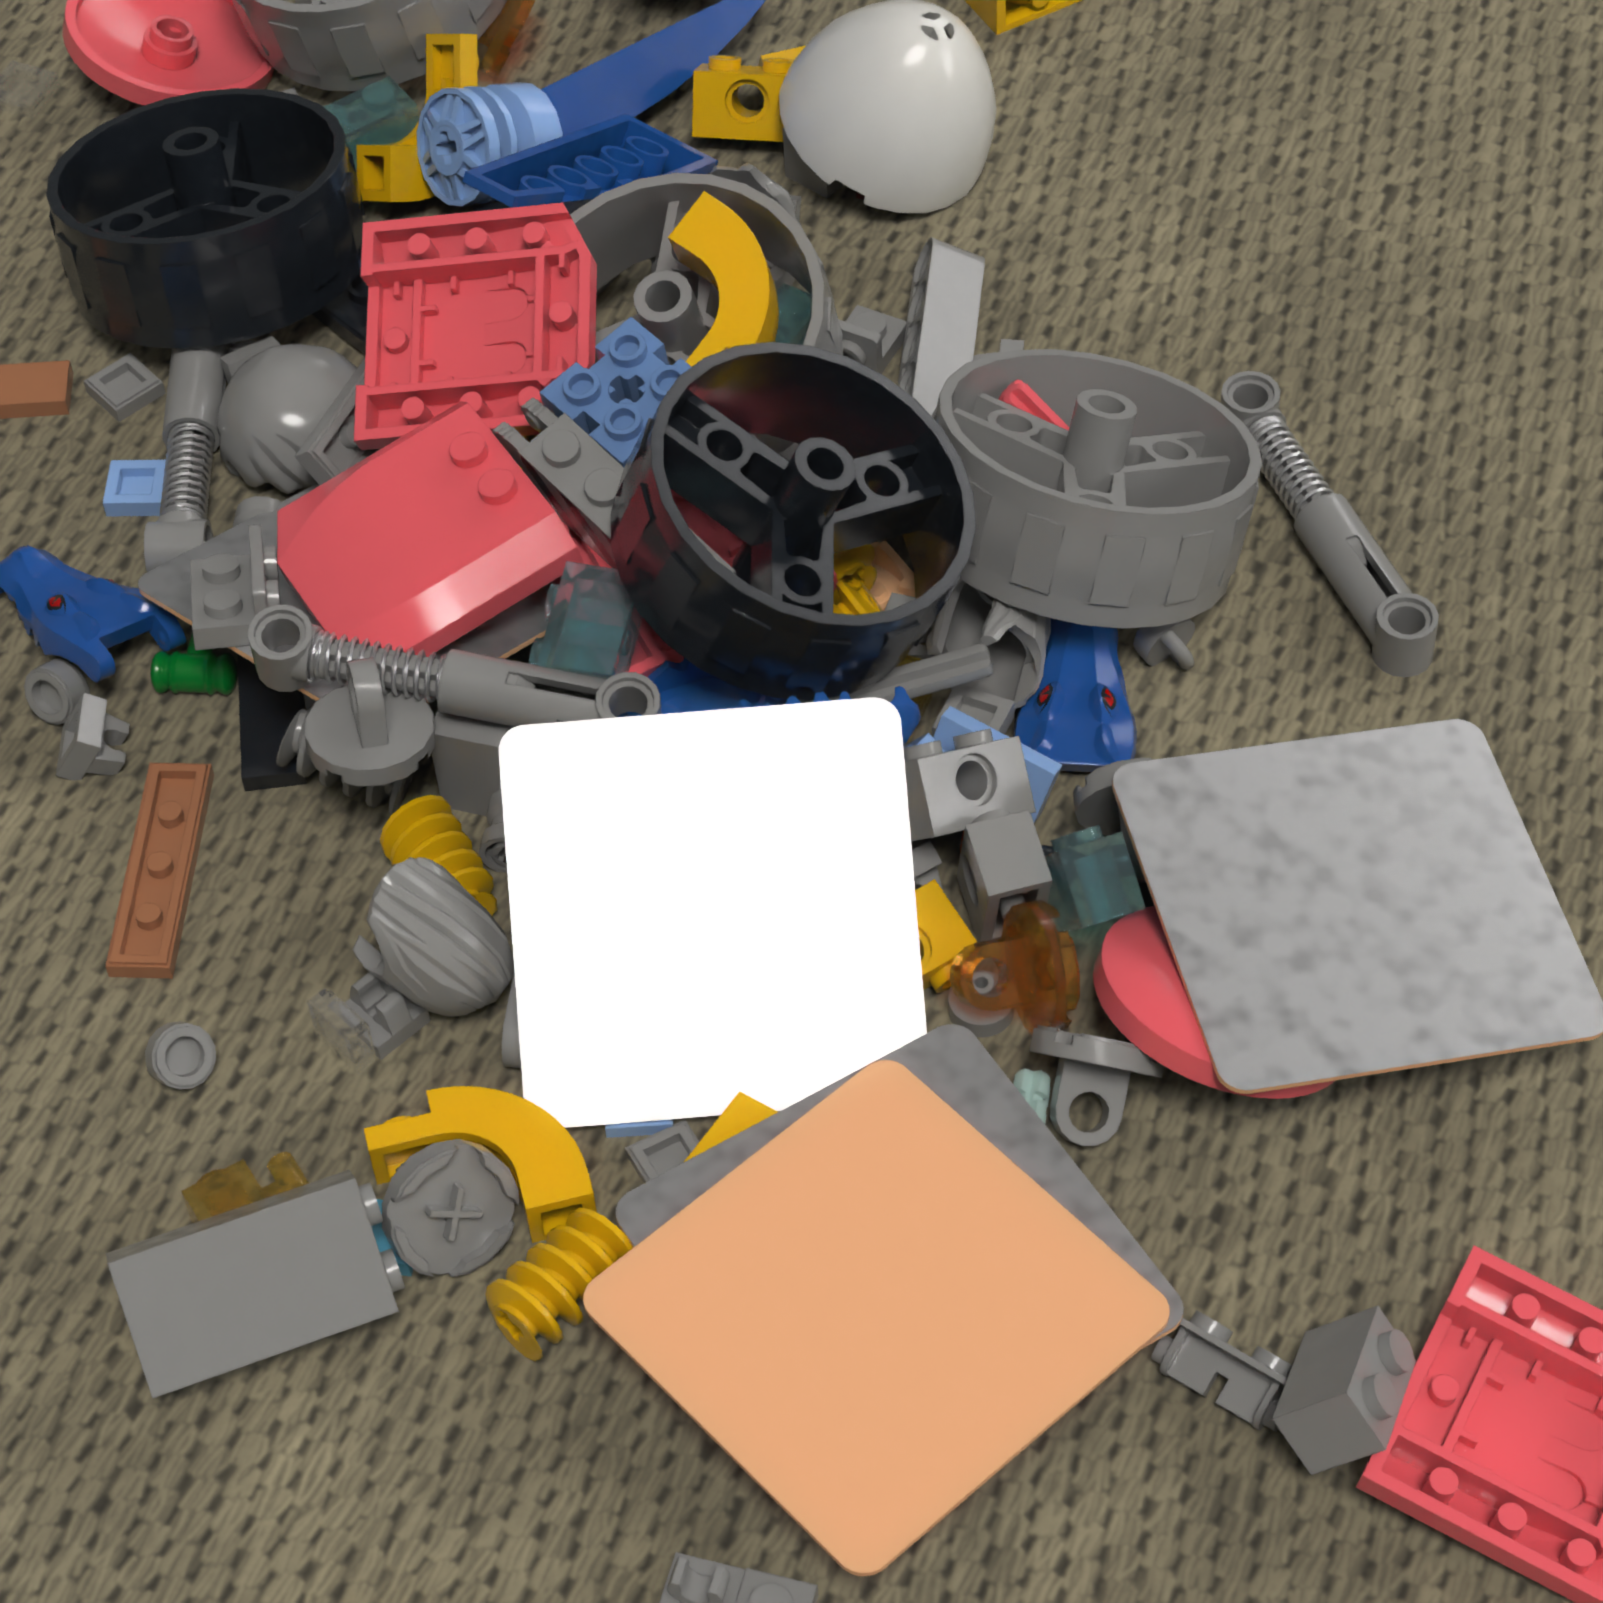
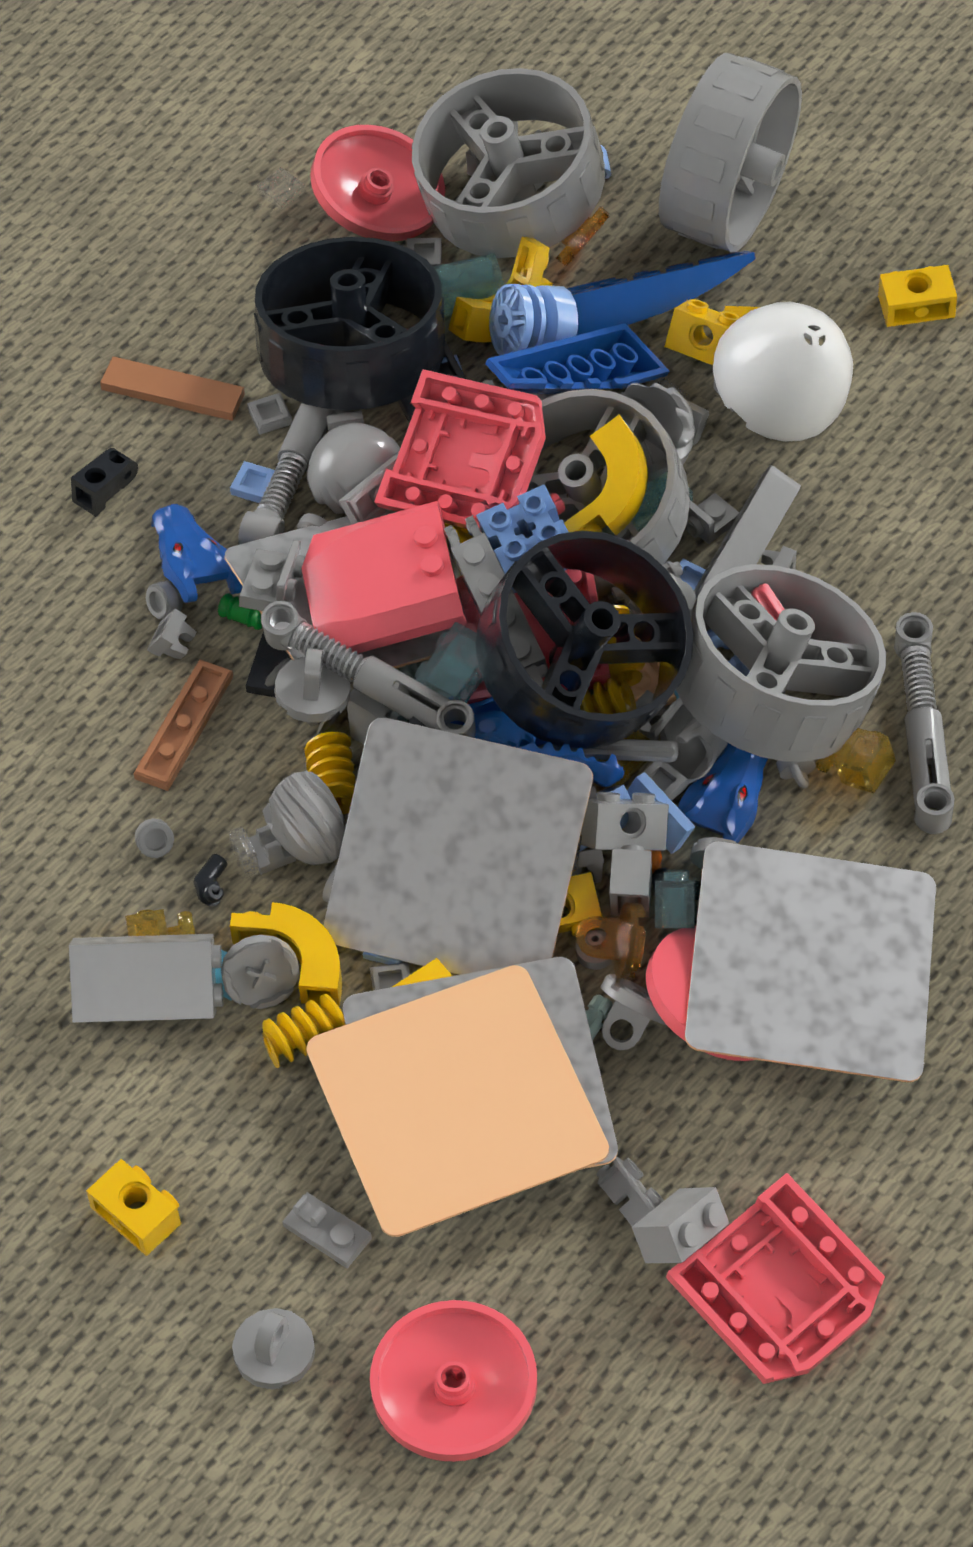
camera: 20 degrees right, 5 degrees up
(295, 1100) = (207, 883): none -> black arm
(1262, 600) = (862, 760): none -> clear yellow brick

